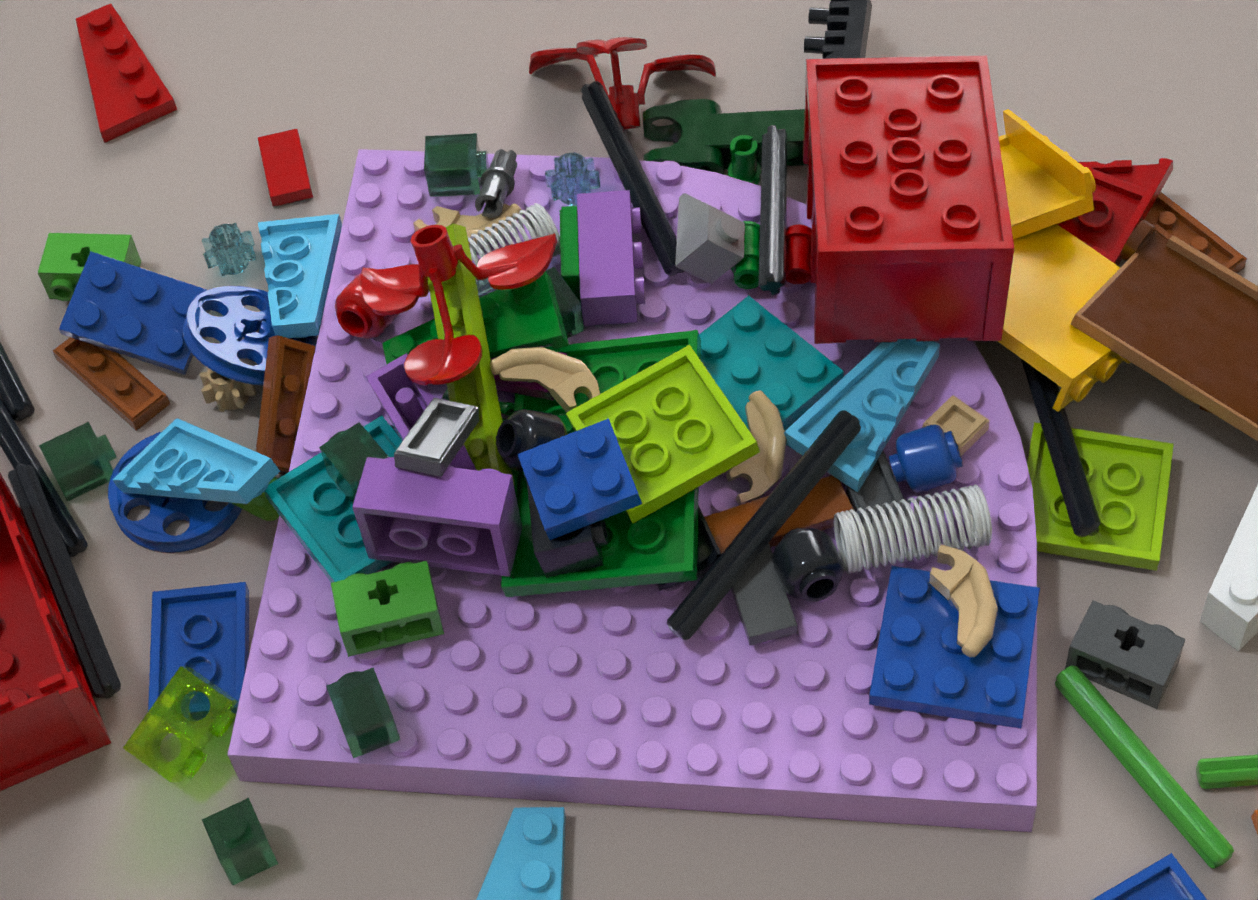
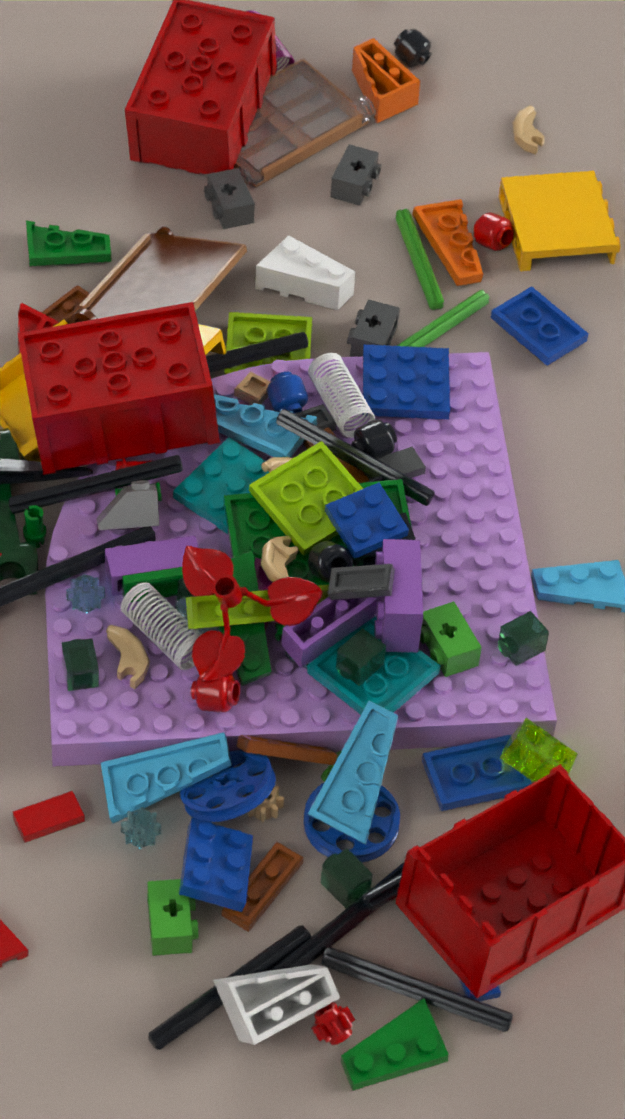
camera: 110 degrees left, 5 degrees down
(240, 841) = (601, 716): clear green brick -> none
(497, 183) = (101, 634): dark grey axle -> none
(971, 594) = (380, 365): tan piece -> none

